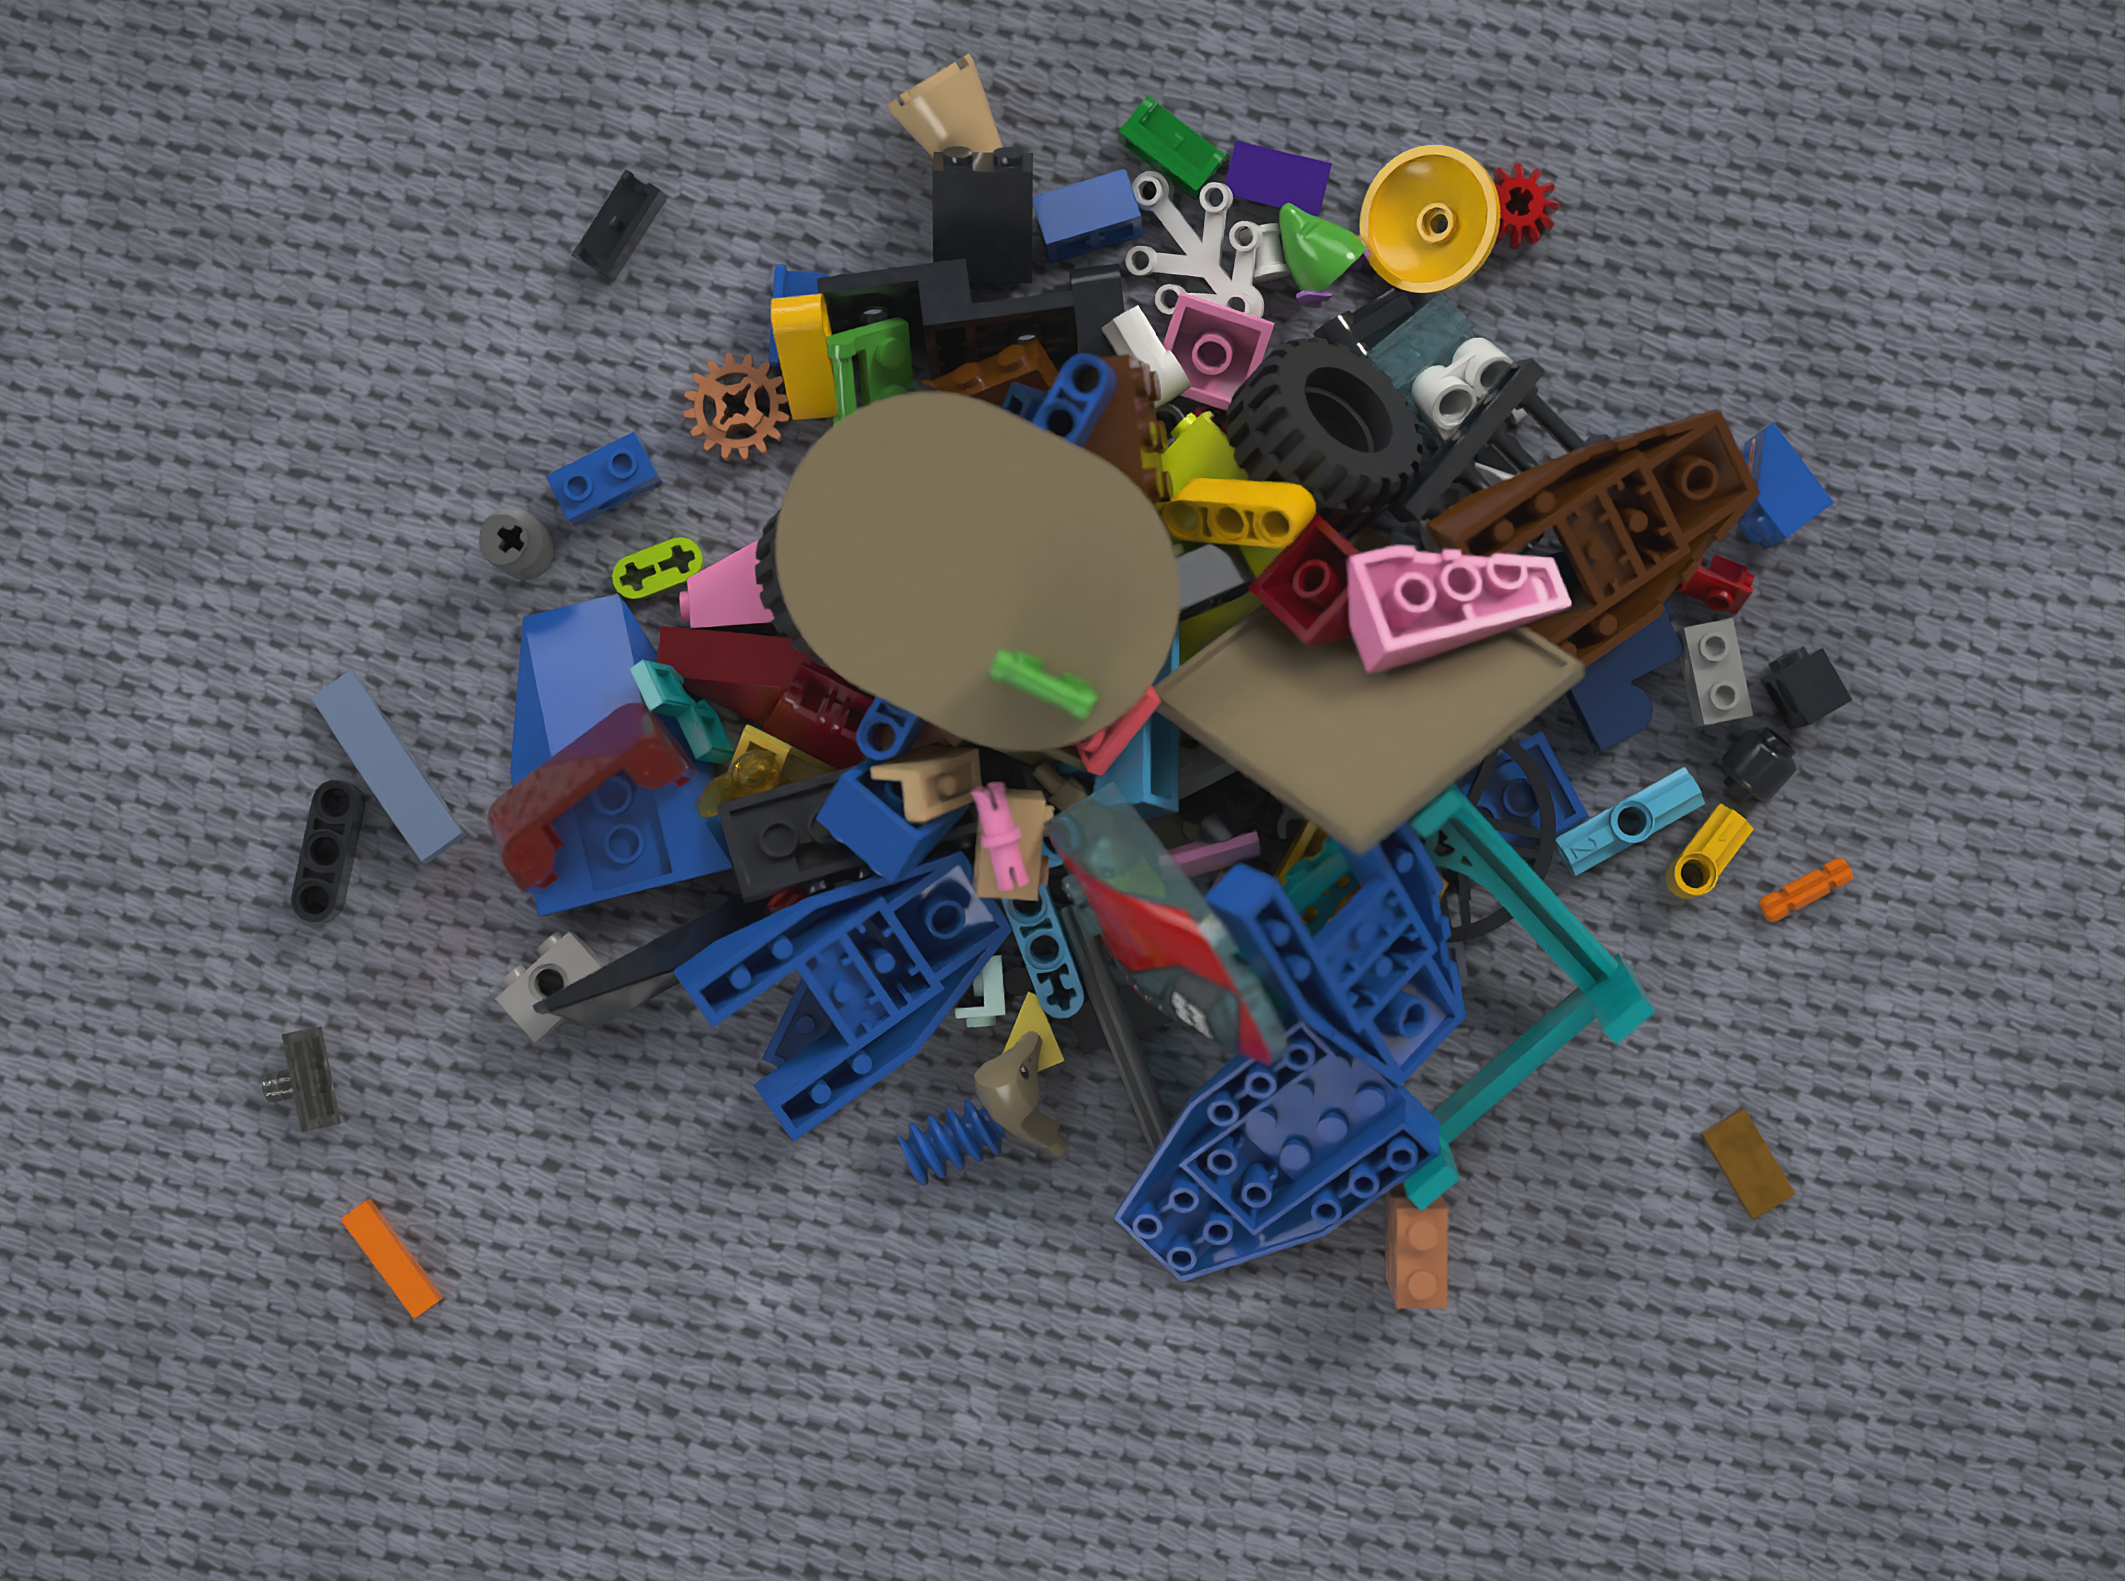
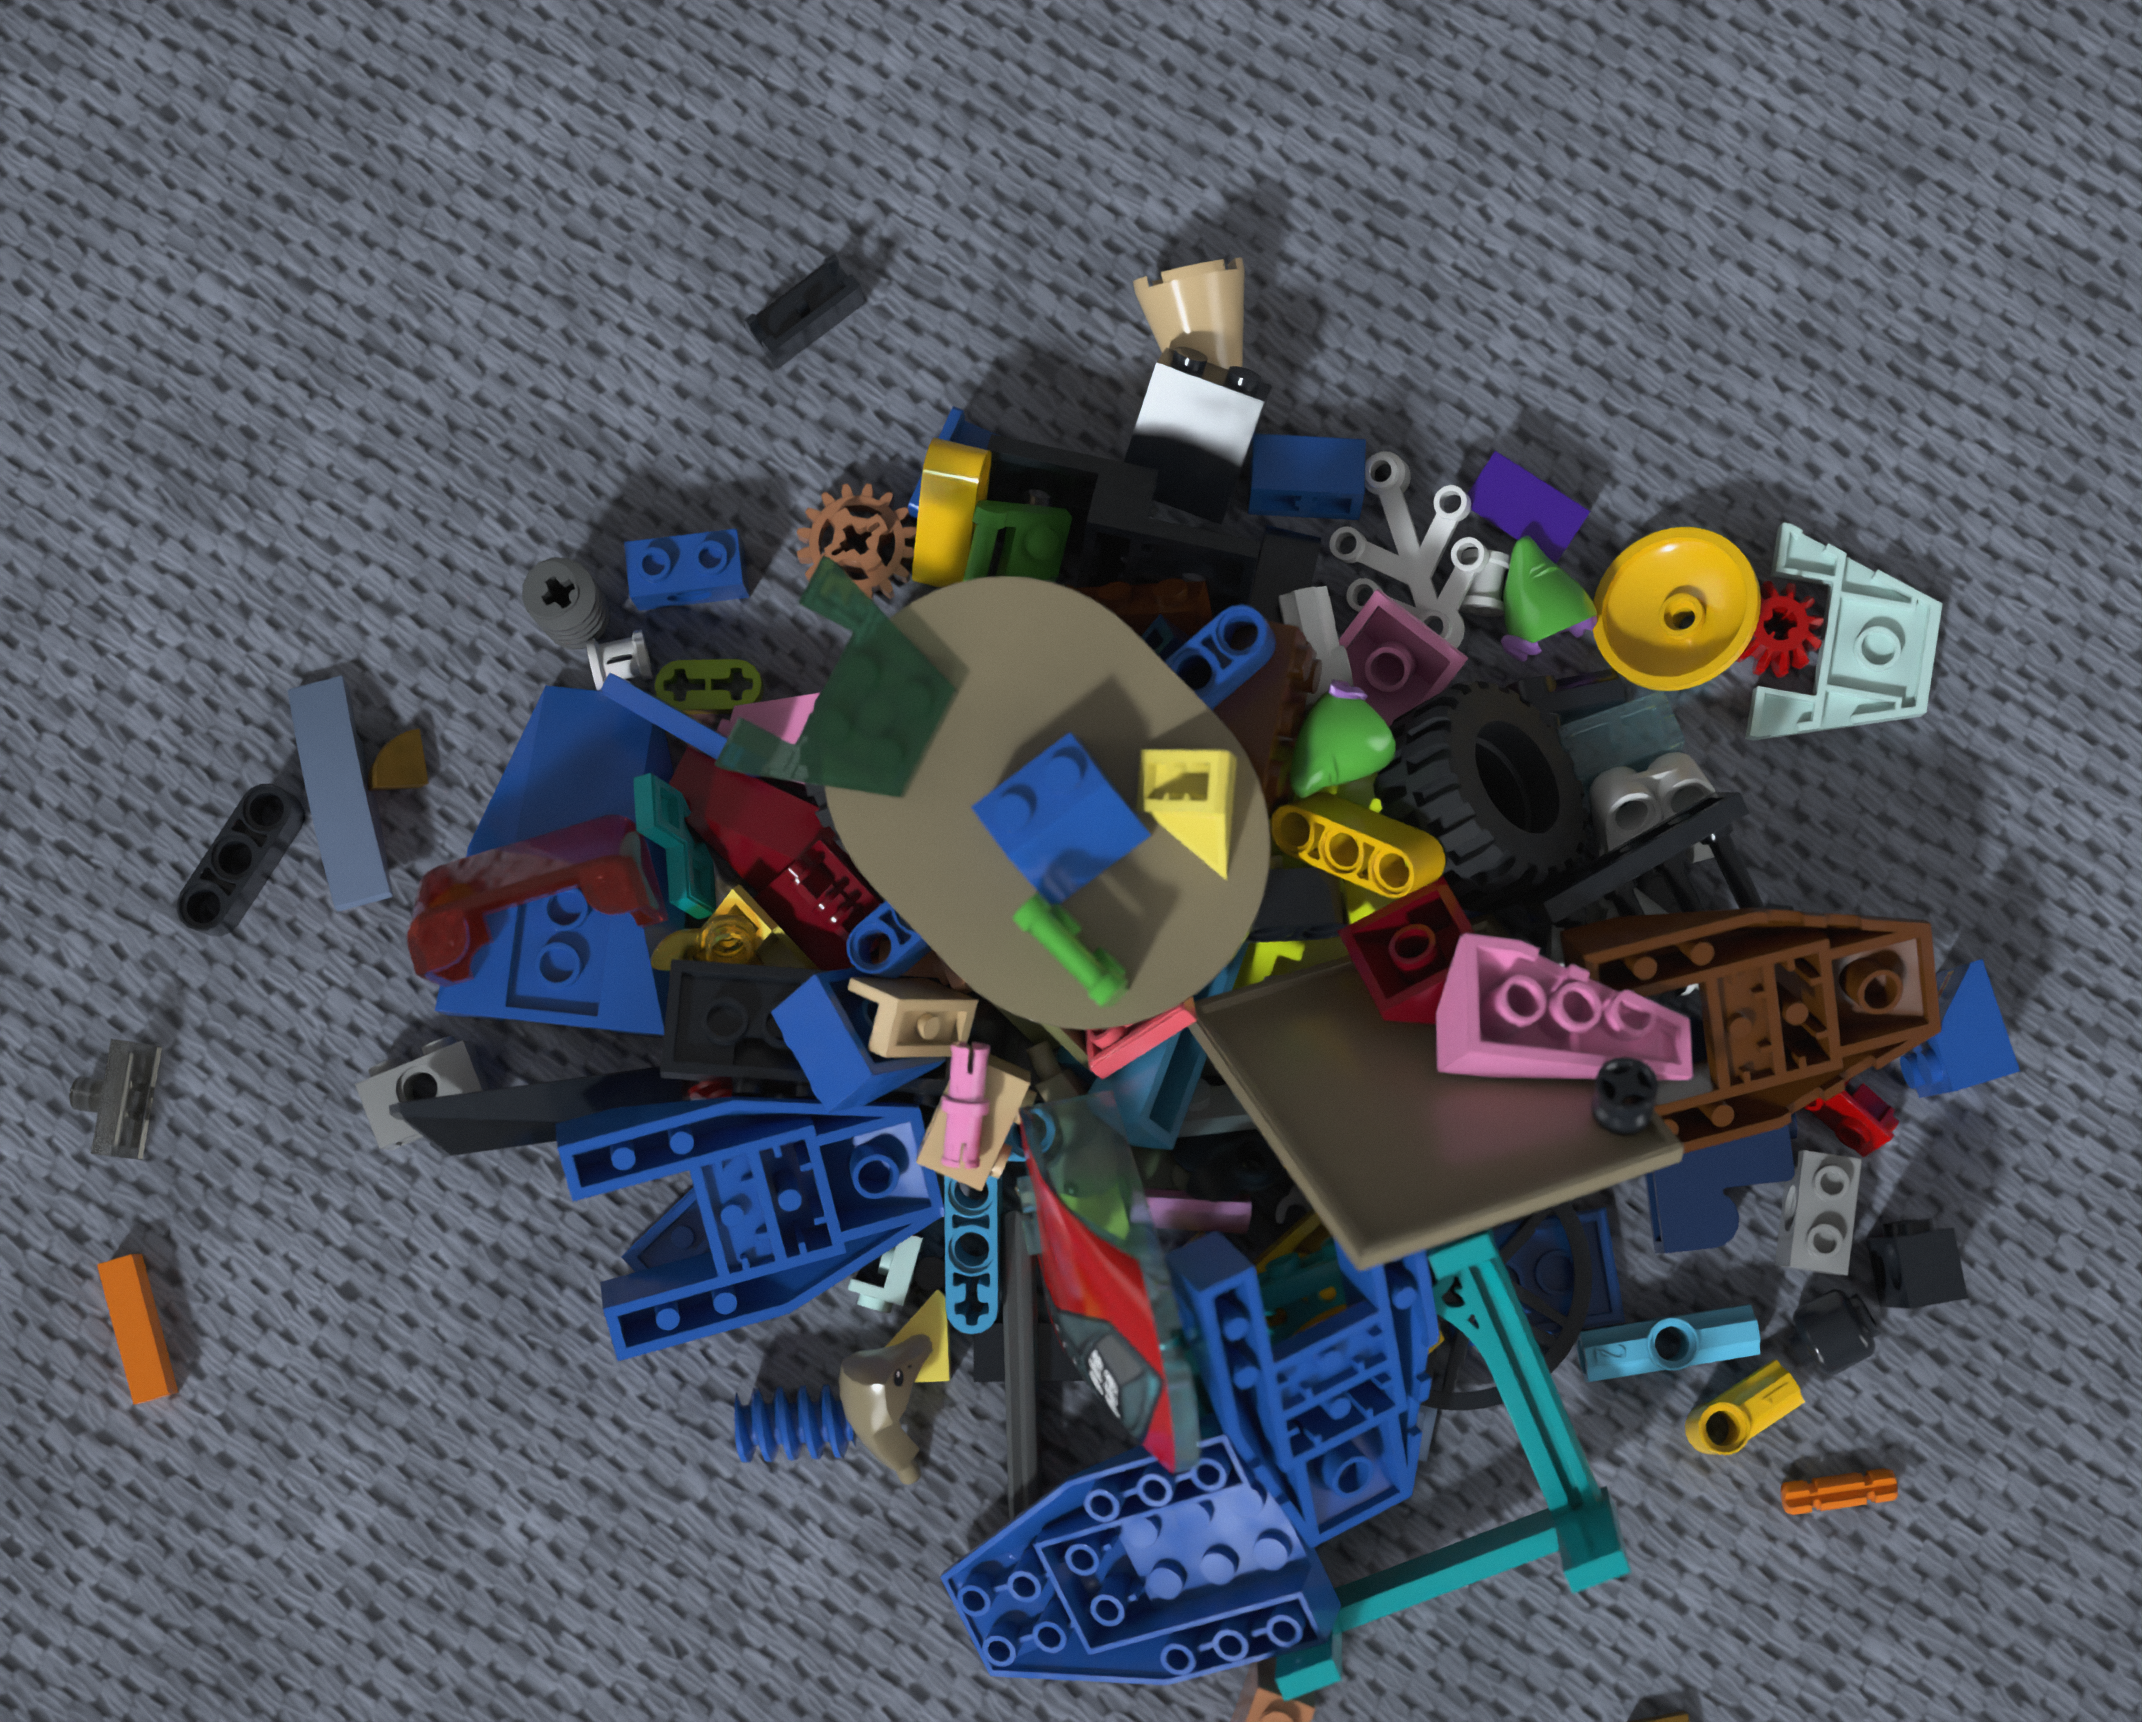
camera: 25 degrees right, 5 degrees down
(427, 725) = (399, 764): none -> pearl gold tile
(570, 588) = (636, 666): none -> white bush
(653, 610) = (665, 715): none -> blue tile
(812, 550) = (872, 713): none -> clear green wing
(997, 582) = (1061, 820): none -> blue slope
(1094, 528) = (1191, 799): none -> light yellow slope
(1171, 147) = (1421, 435): green hinge -> none
(1194, 434) = (1339, 741): none -> bright green hat
(1512, 631) = (1621, 1080): none -> black wheel
(1602, 195) = (1872, 651): none -> light aqua wing

